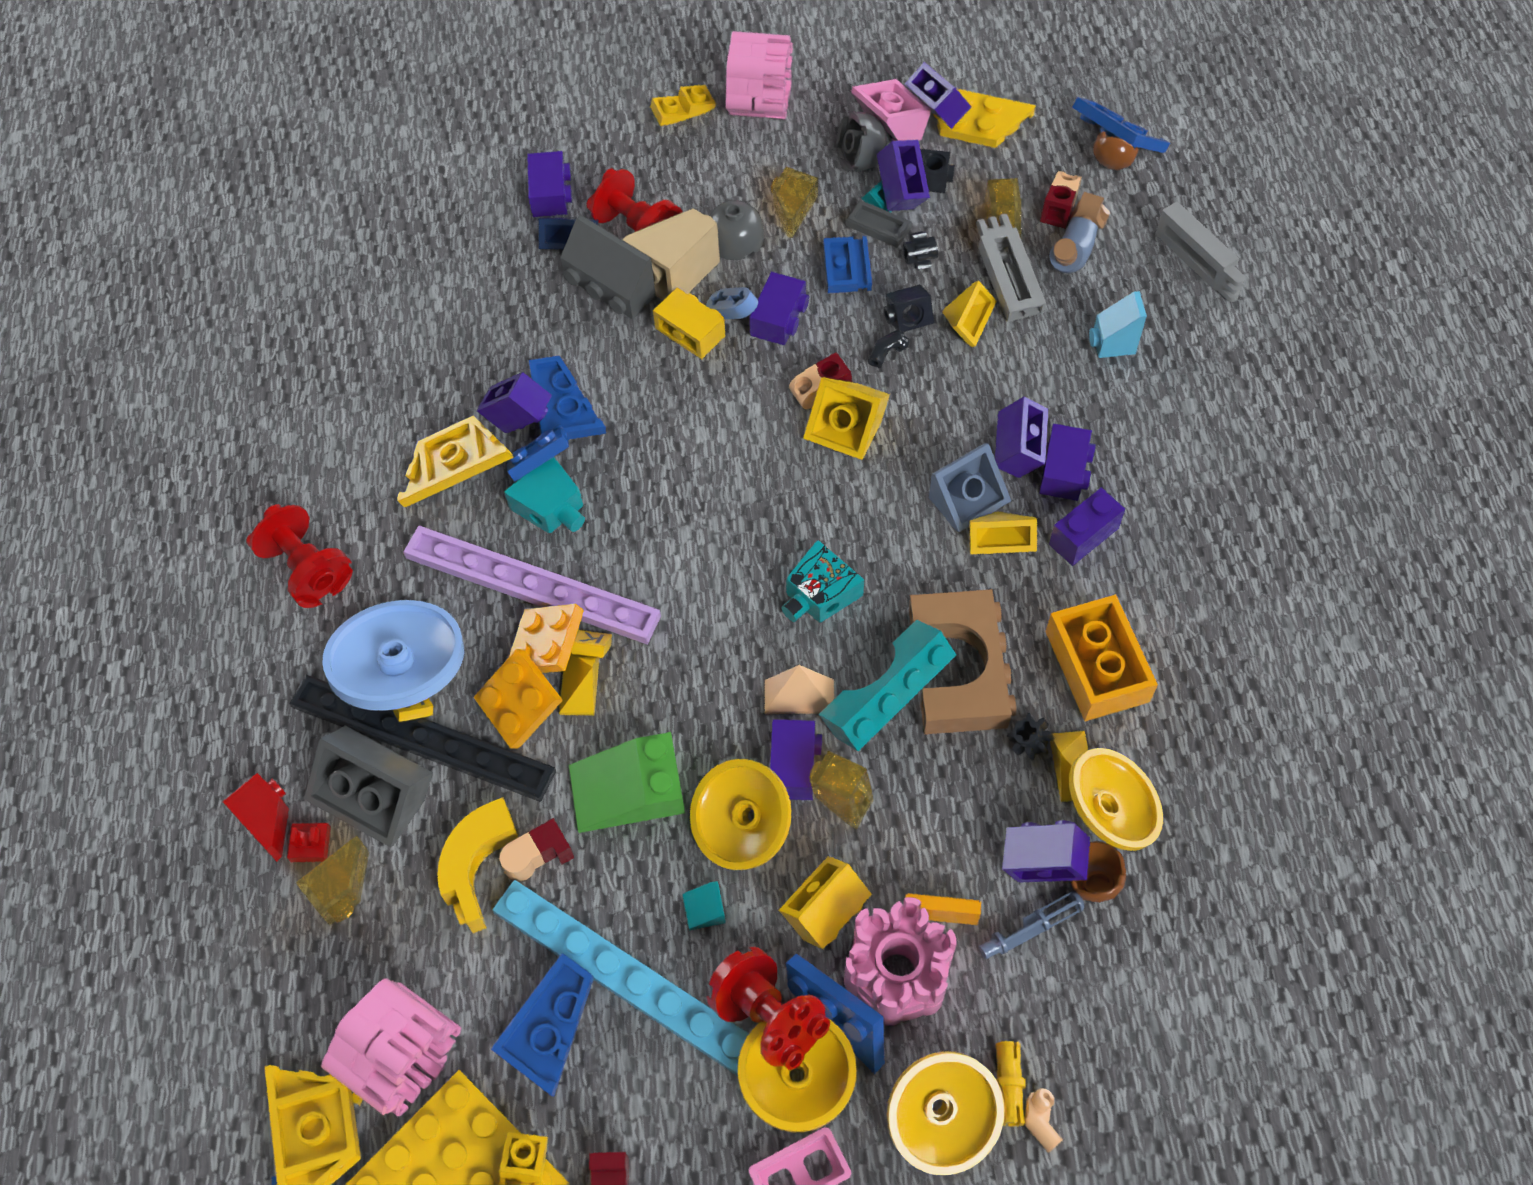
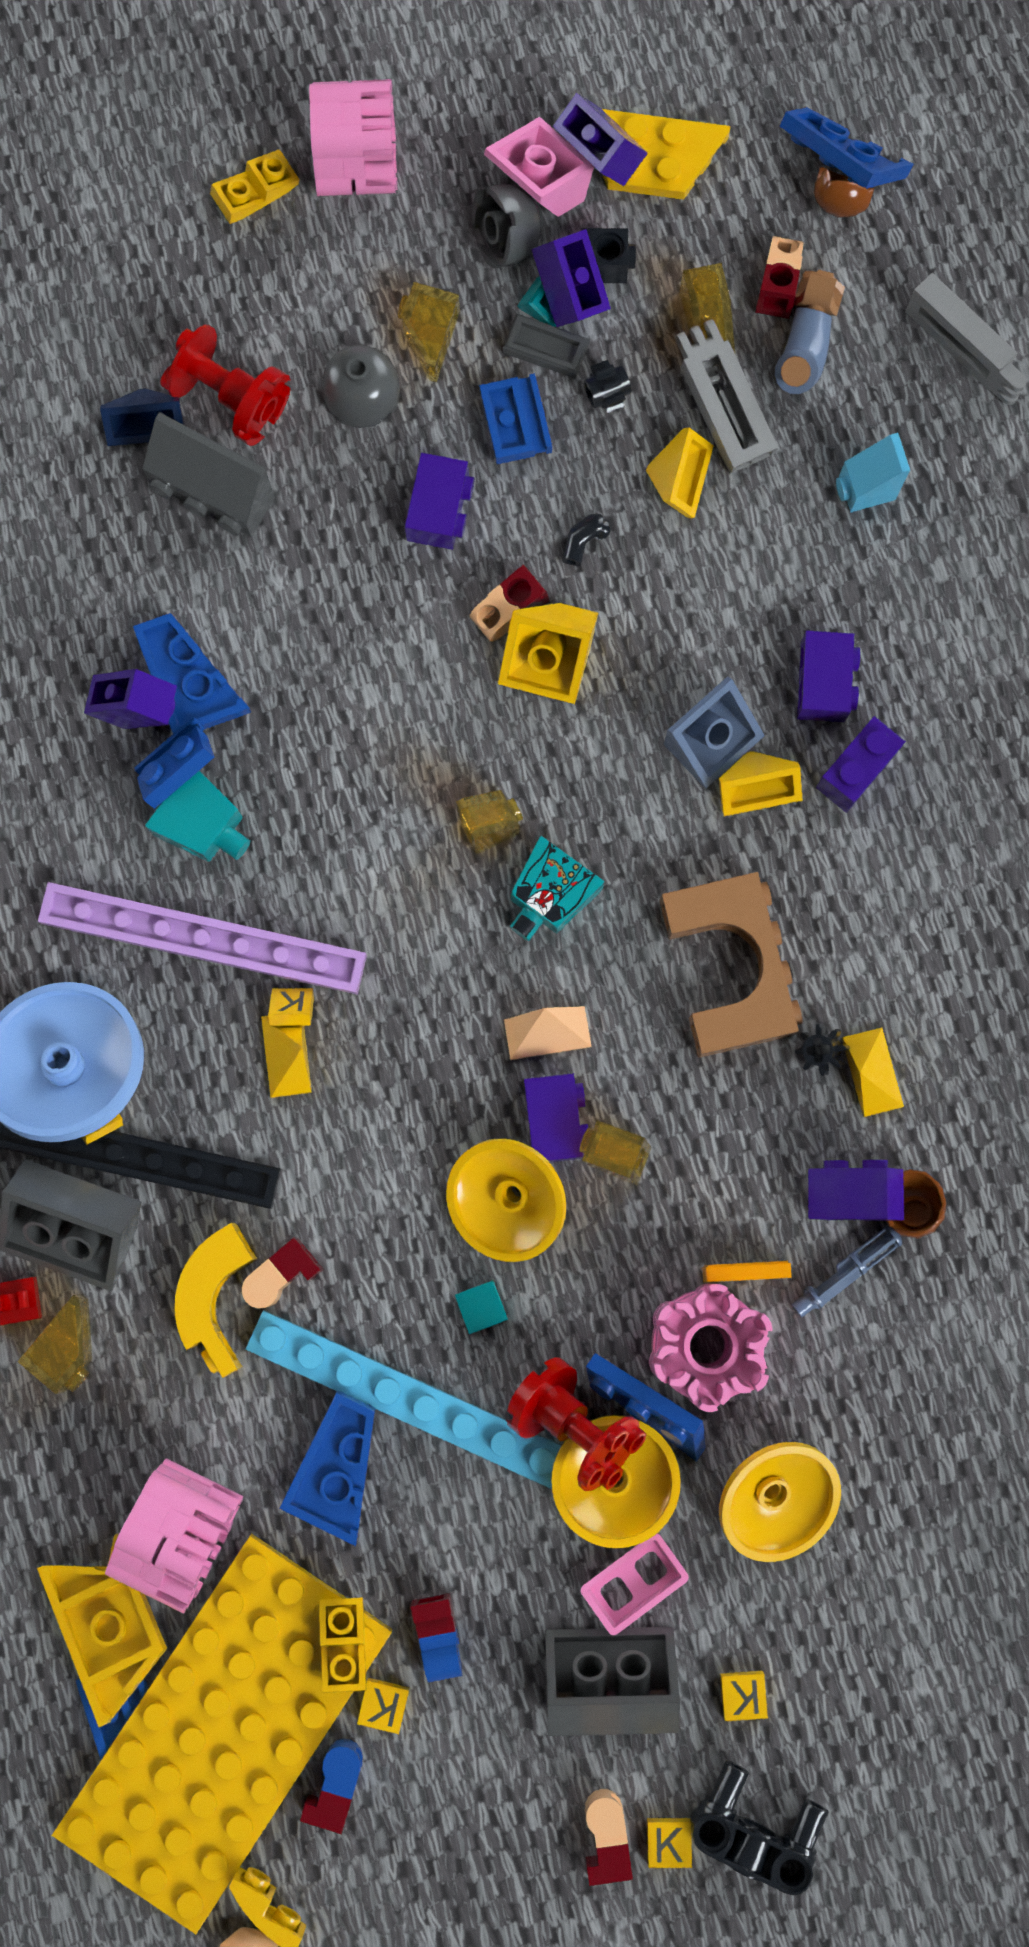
camera: 10 degrees left, 20 degrees up
(451, 458) = (68, 783): yellow wing -> none
(517, 698) = (220, 1094): light orange plate -> none
(547, 184) = (99, 346): dark purple brick -> none
(548, 635) = (235, 1013): light orange plate -> none
(627, 784) = (367, 1177): bright green slope -> none
(679, 249) = (294, 441): tan slope -> none
(689, 322) = (327, 538): yellow brick -> none
(733, 302) = (375, 512): medium blue beam -> none
(777, 525) = (488, 819): none -> clear yellow slope
(825, 902) = (617, 1287): yellow brick -> none
(863, 712) = (627, 1054): teal arch -> none
(918, 315) = (605, 480): black brick -> none
(1010, 1081) = (842, 1449): yellow pin -> none
(1021, 437) = (769, 653): dark purple brick -> none
(1037, 1118) = (875, 1484): light nougat arm -> none
(1100, 657) = (893, 939): light orange brick -> none
(1115, 799) = (927, 1116): yellow dish -> none

